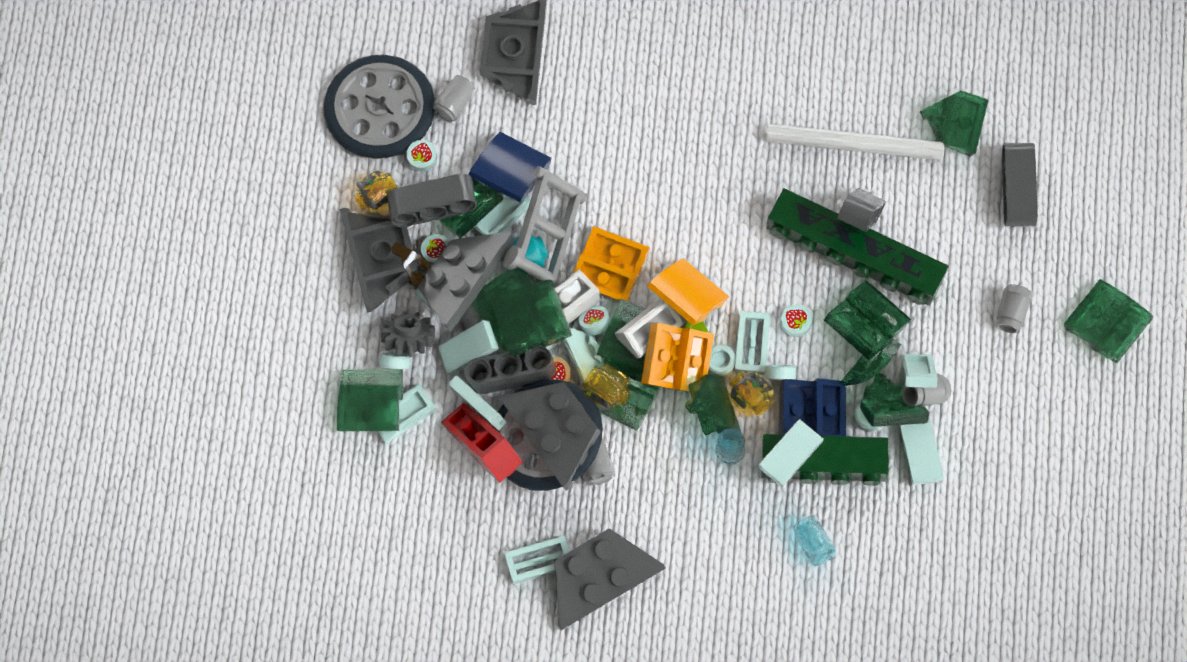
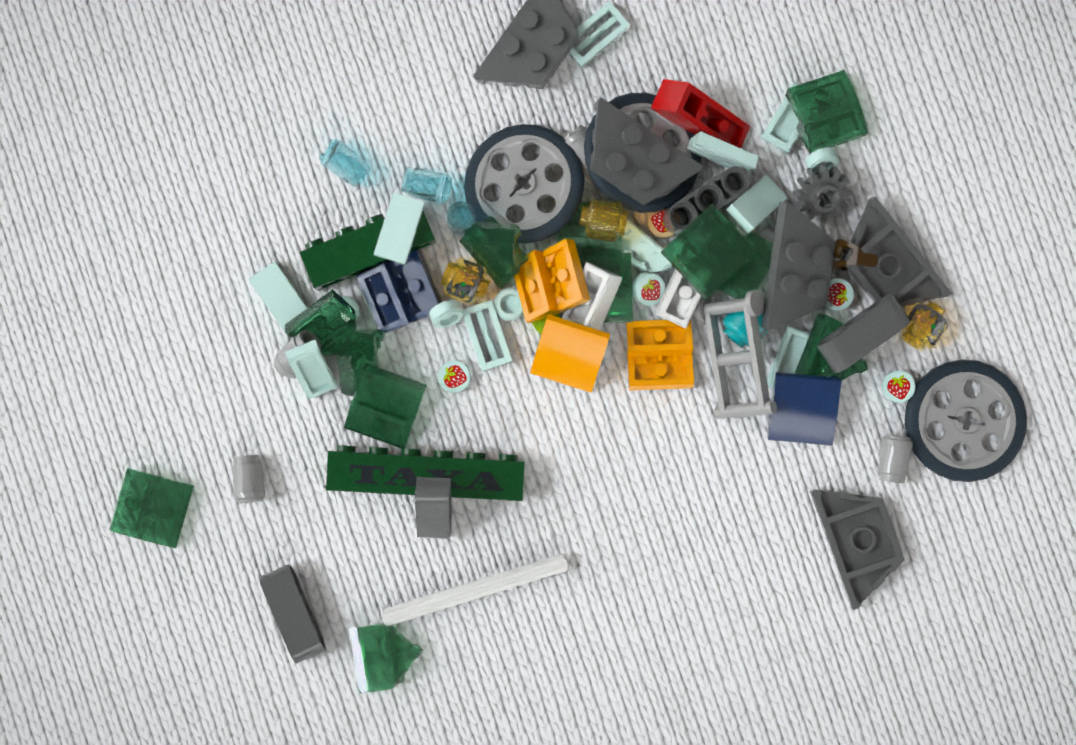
camera: 155 degrees right, 15 degrees up
(623, 469) = (553, 151): none -> light grey wedge
(748, 490) = (427, 185): none -> clear light blue piece

